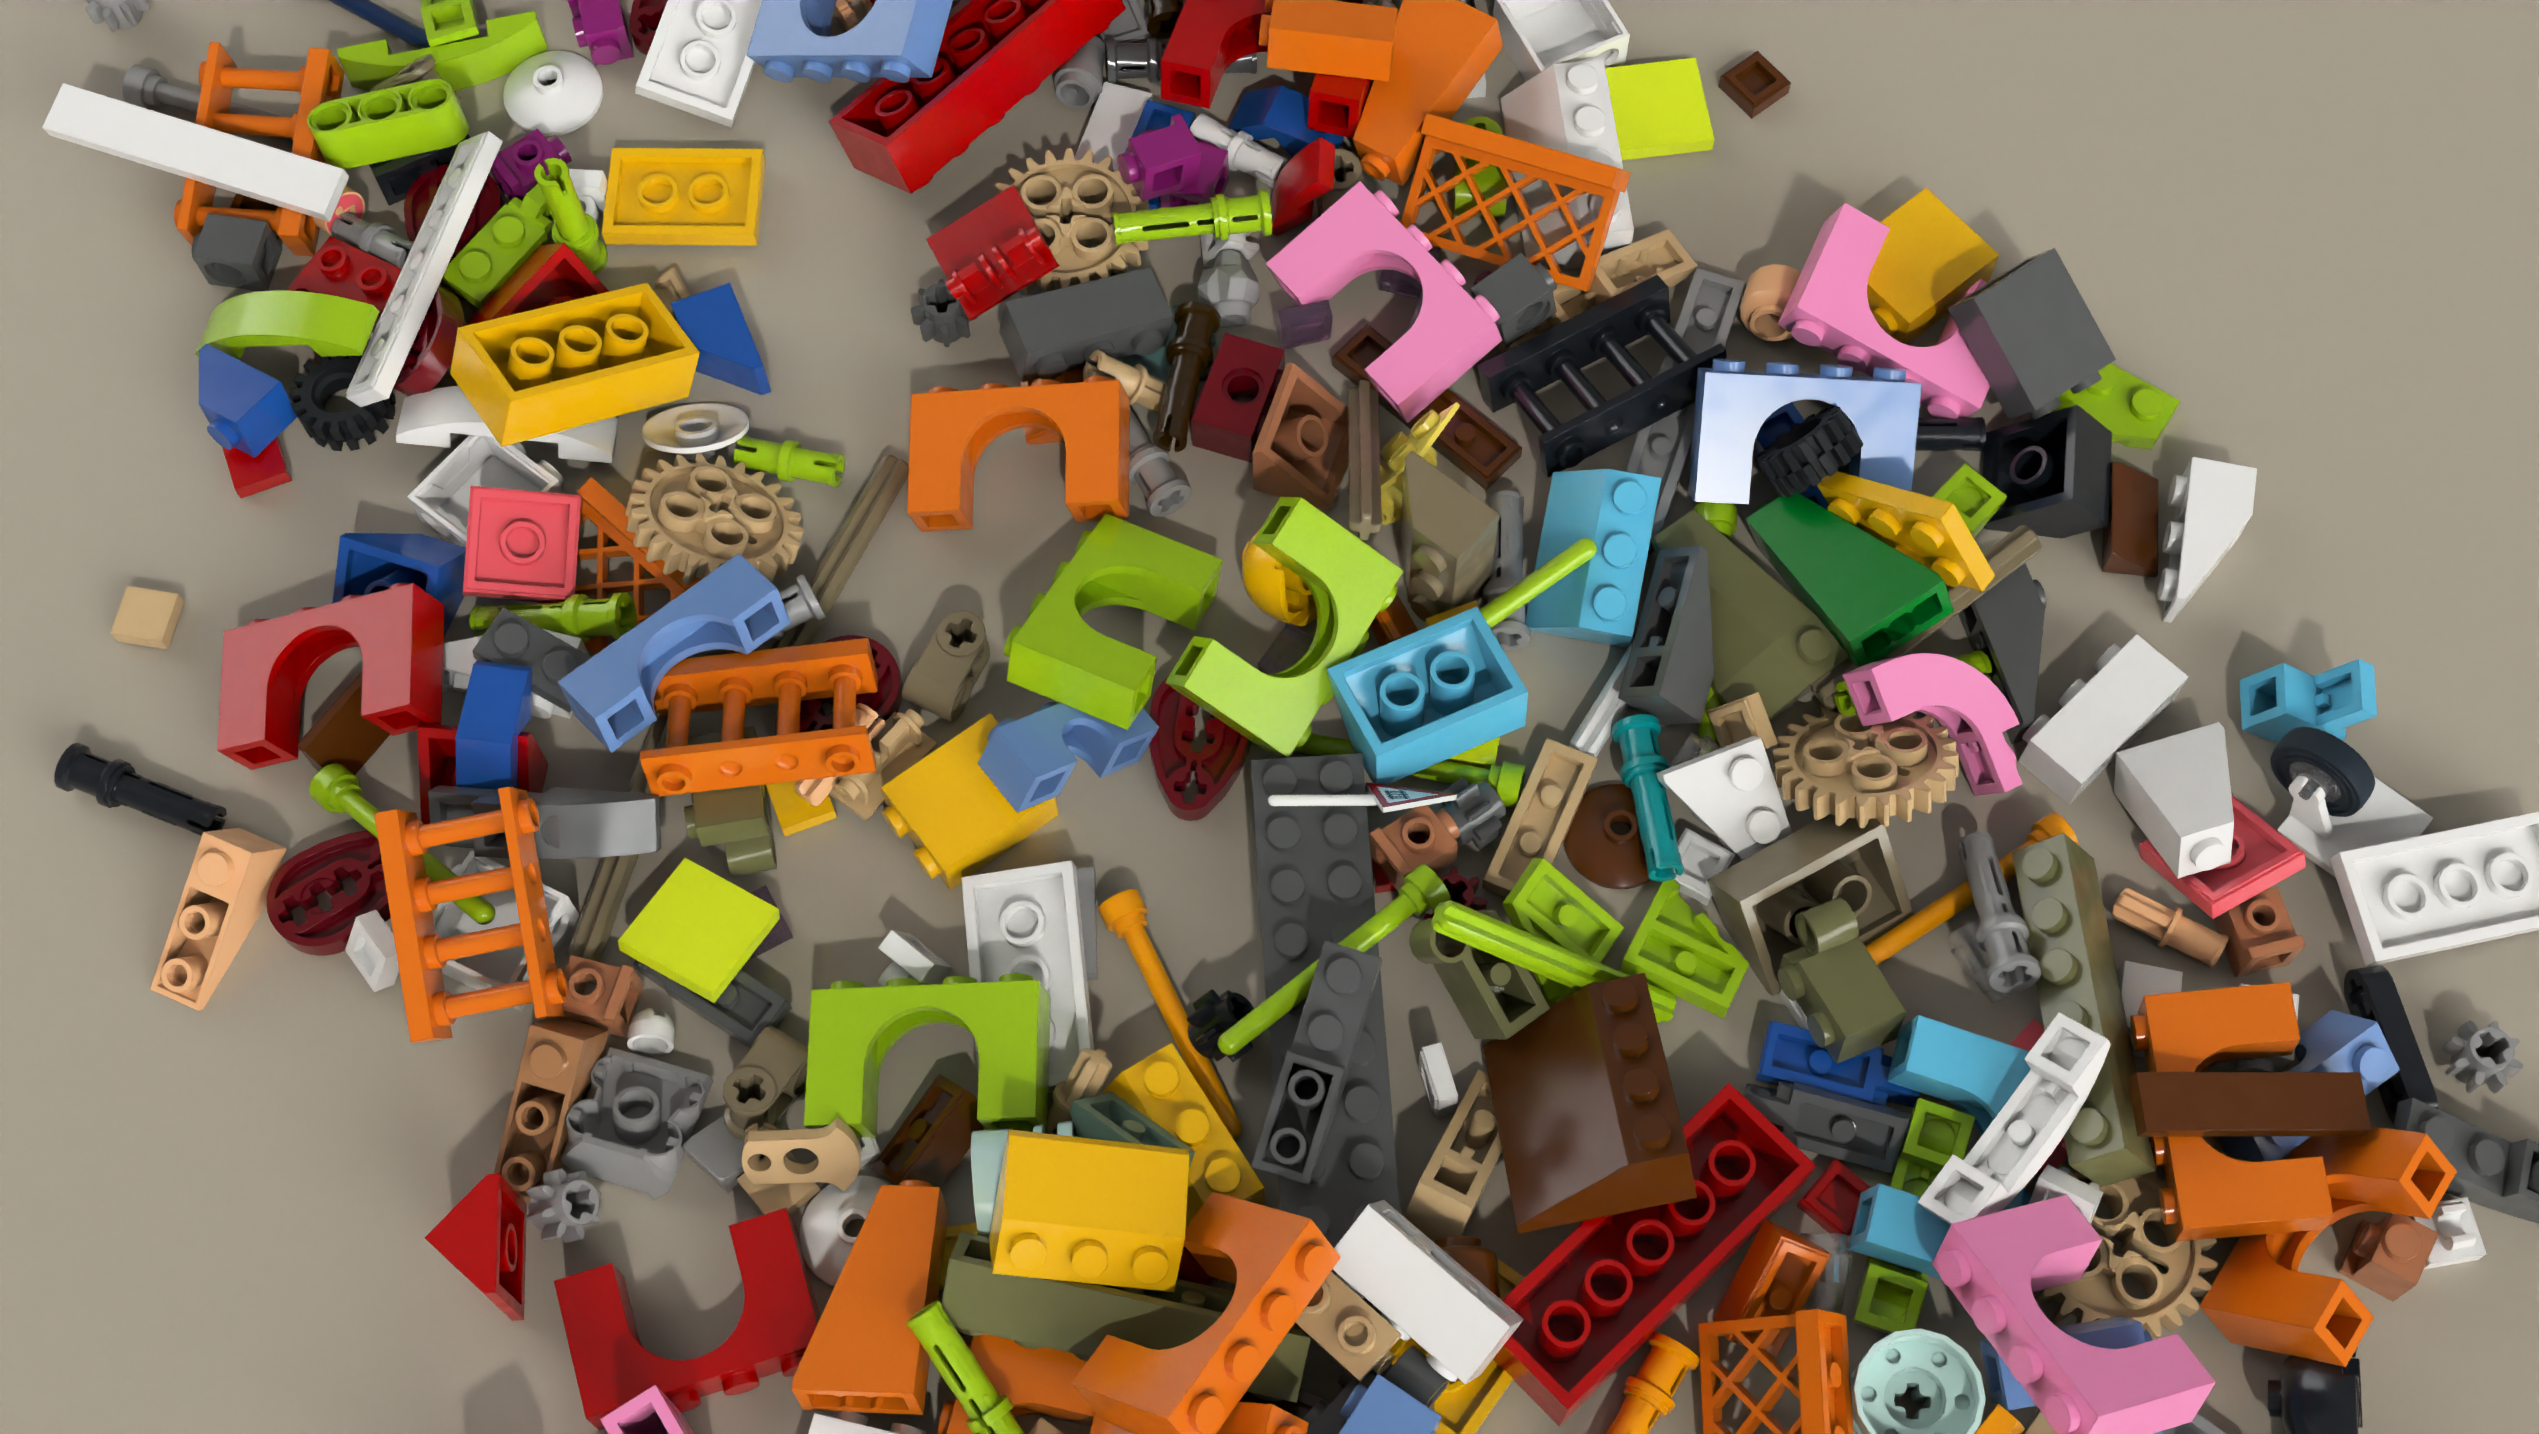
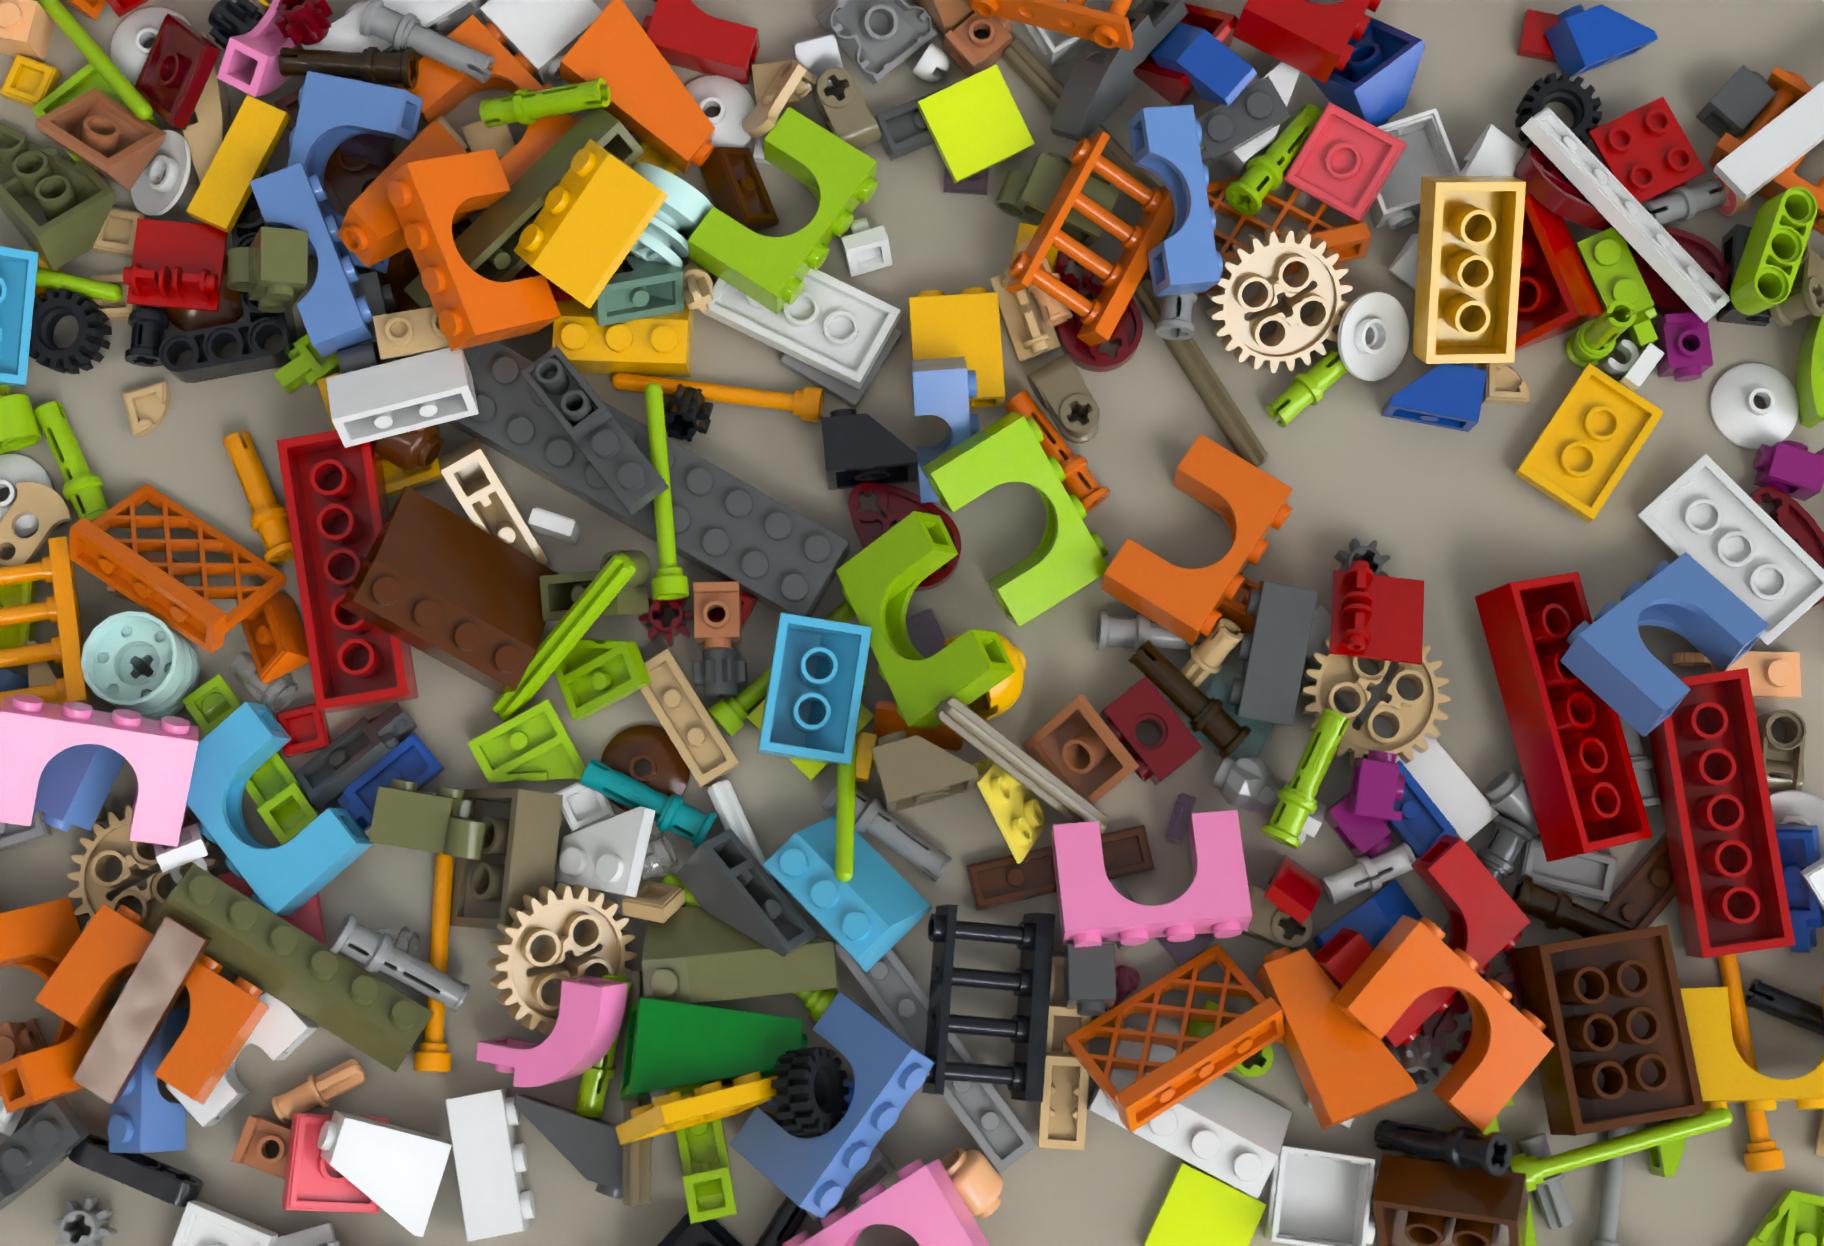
camera: 120 degrees right, 15 degrees up
(290, 318) = (1634, 99): lime slope -> none
(993, 688) = (1078, 477): none -> orange pin
(1149, 812) = (864, 451): none -> black slope
(1385, 796) = (751, 613): white piece -> none
(2026, 1128) = (232, 842): white slope -> none

